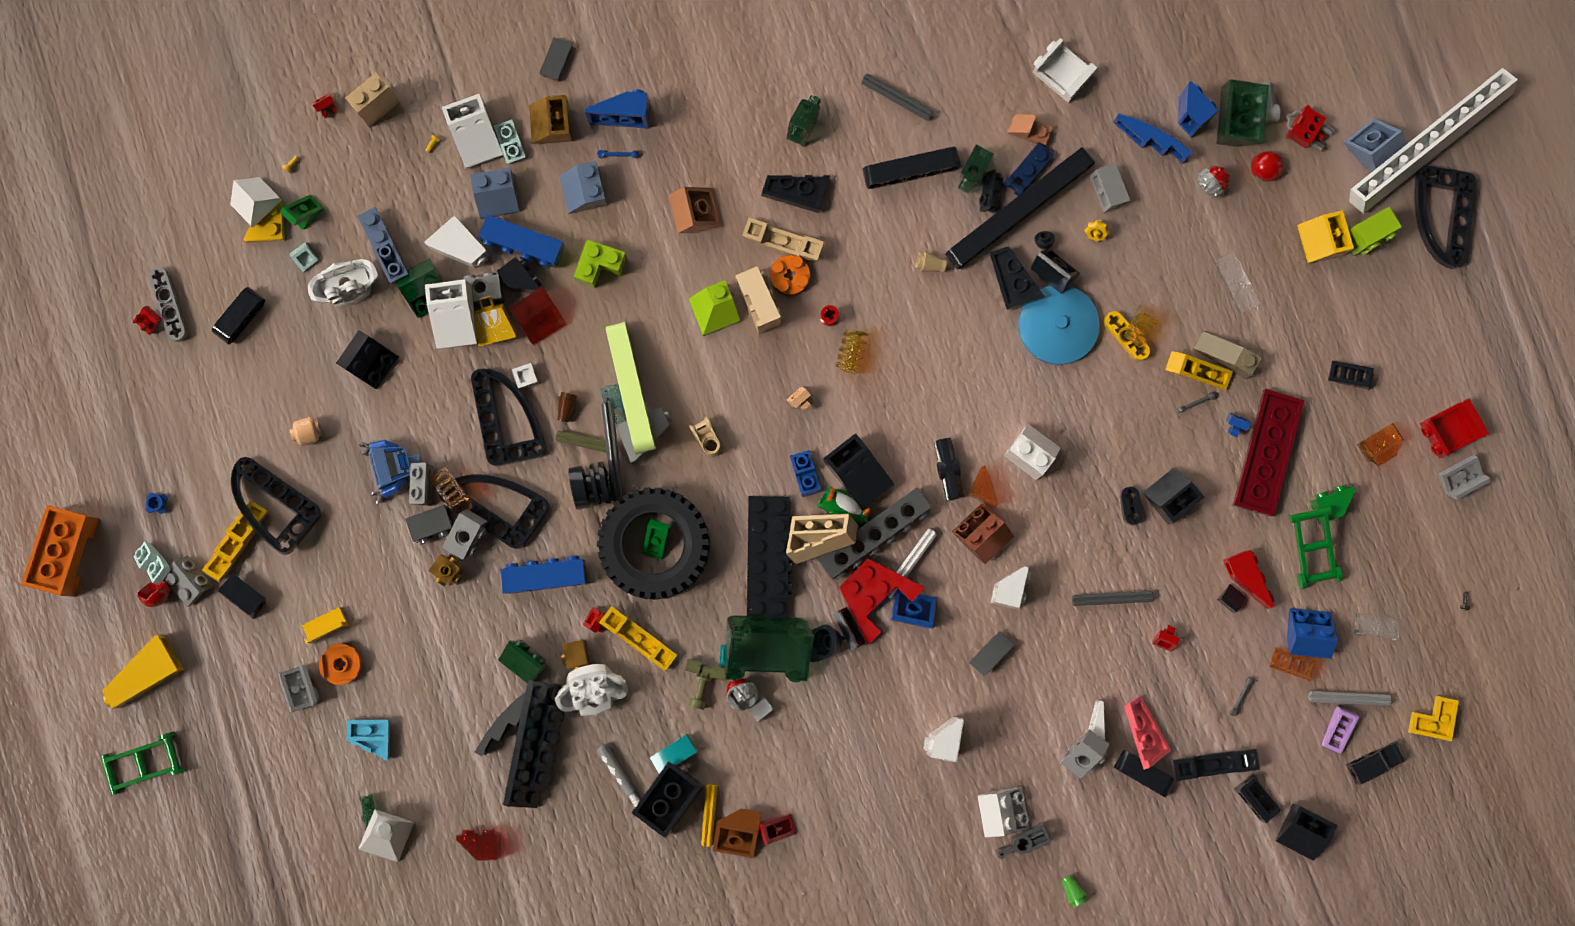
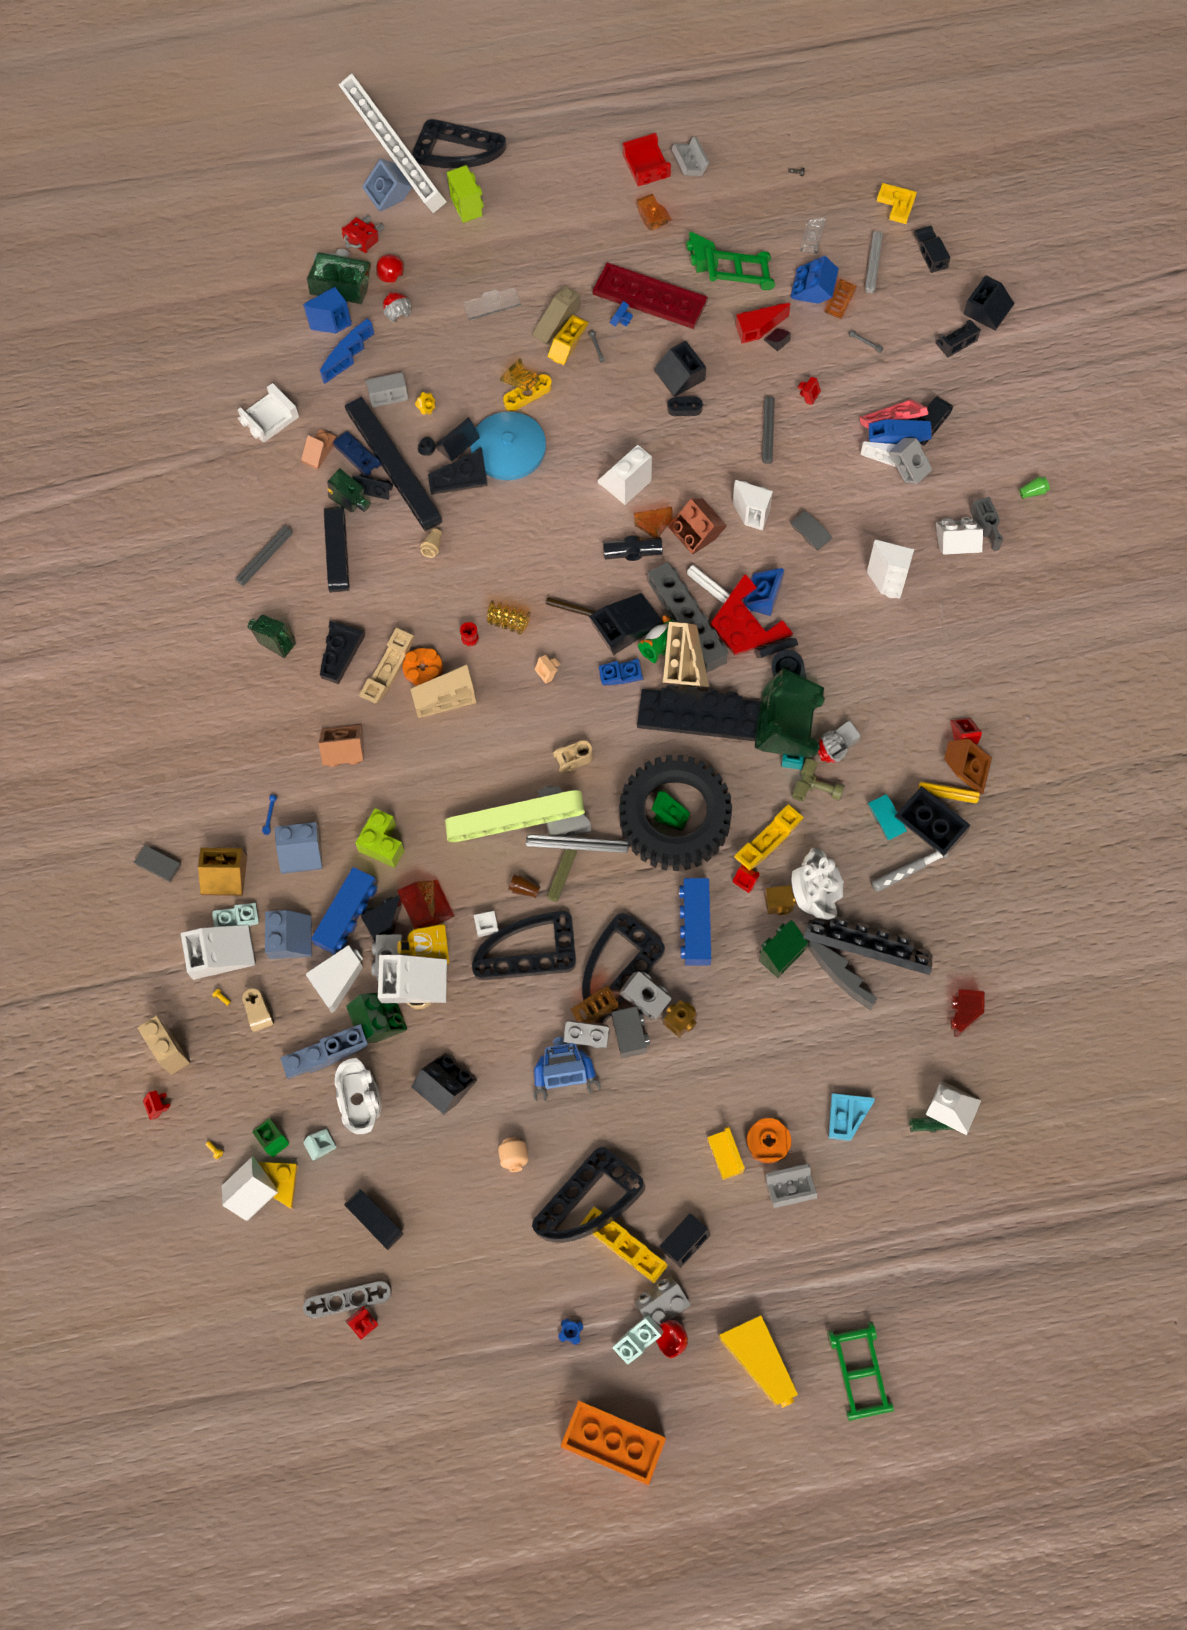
camera: 80 degrees left, 15 degrees down
(417, 179) = (257, 1013): none -> tan piece
(590, 485) = (609, 865): black wheel -> none
(612, 394) = (518, 840): clear light blue piece -> none
(623, 110) = (229, 793): blue slope -> none
(714, 308) = (444, 736): lime slope -> none
(873, 418) = (569, 607): none -> dark brown bar
(1119, 740) = (893, 431): none -> blue slope
(1216, 764) = (924, 364): black slope -> none
(1325, 237) = (463, 229): yellow slope -> none
(1350, 725) = (893, 274): lavender slope -> none
(1364, 385) = (592, 215): black slope -> none

